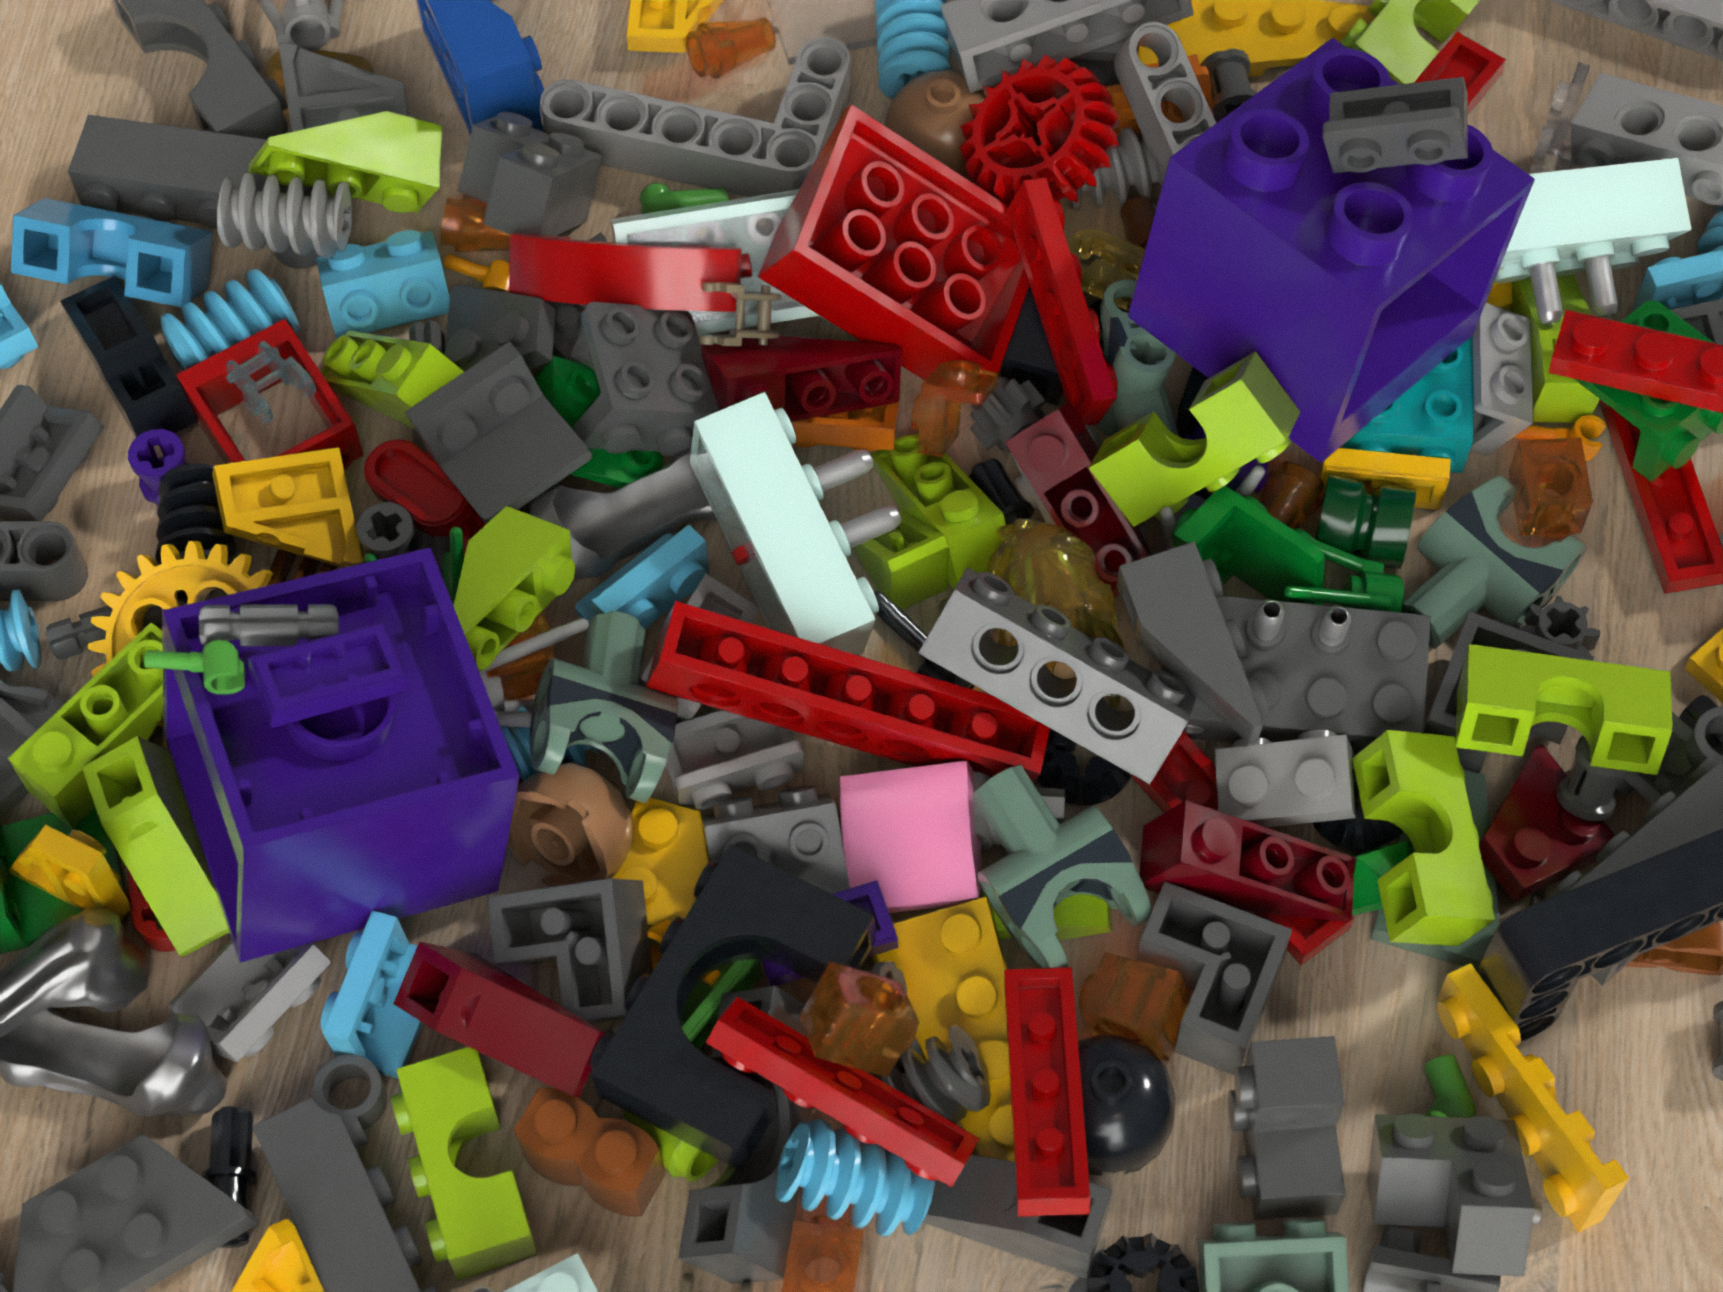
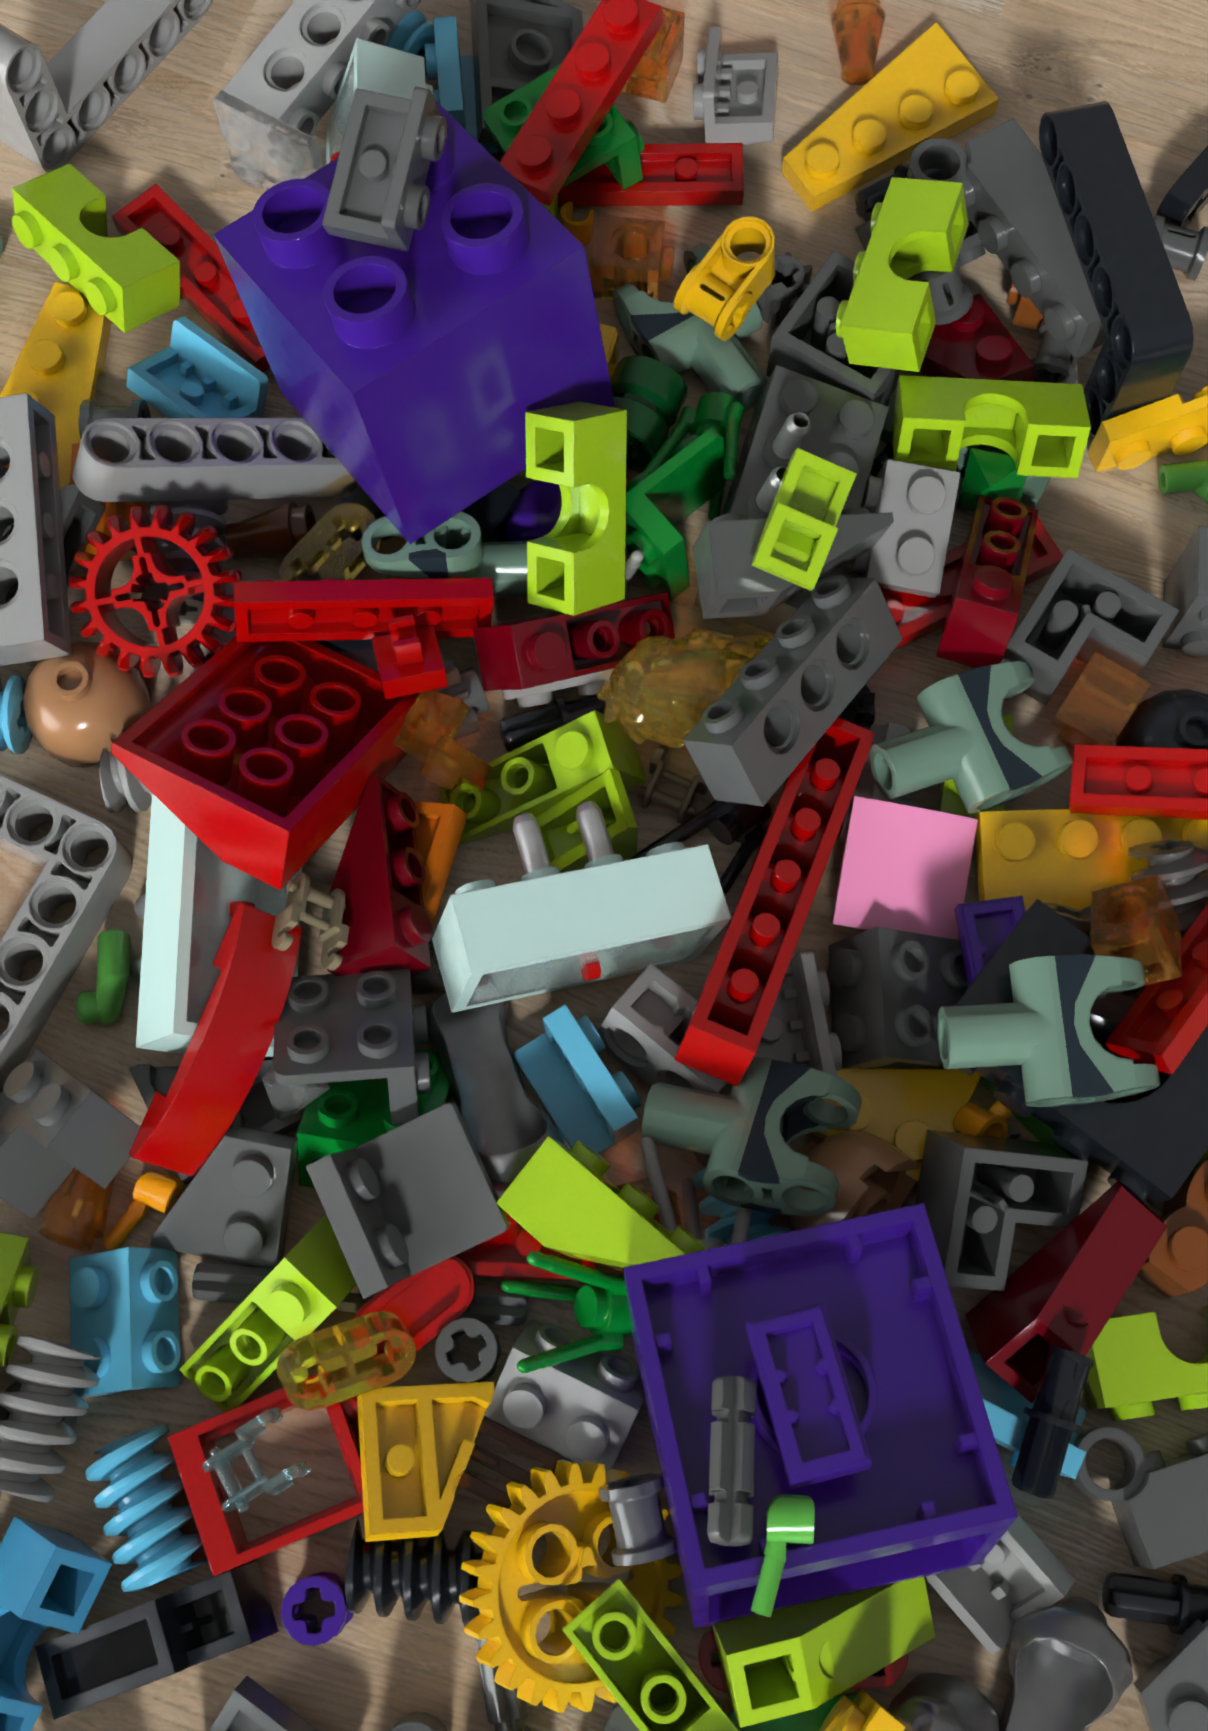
camera: 80 degrees left, 10 degrees up
(359, 426) = (346, 1360): none -> clear yellow beam
(371, 994) = (1051, 1422): none -> black axle
(729, 922) = (1050, 1031): none -> sand green connector
(1022, 352) = (409, 659): none -> red tile
(1217, 627) = (803, 519): none -> lime slope
(1522, 562) = (725, 287): none -> yellow piece

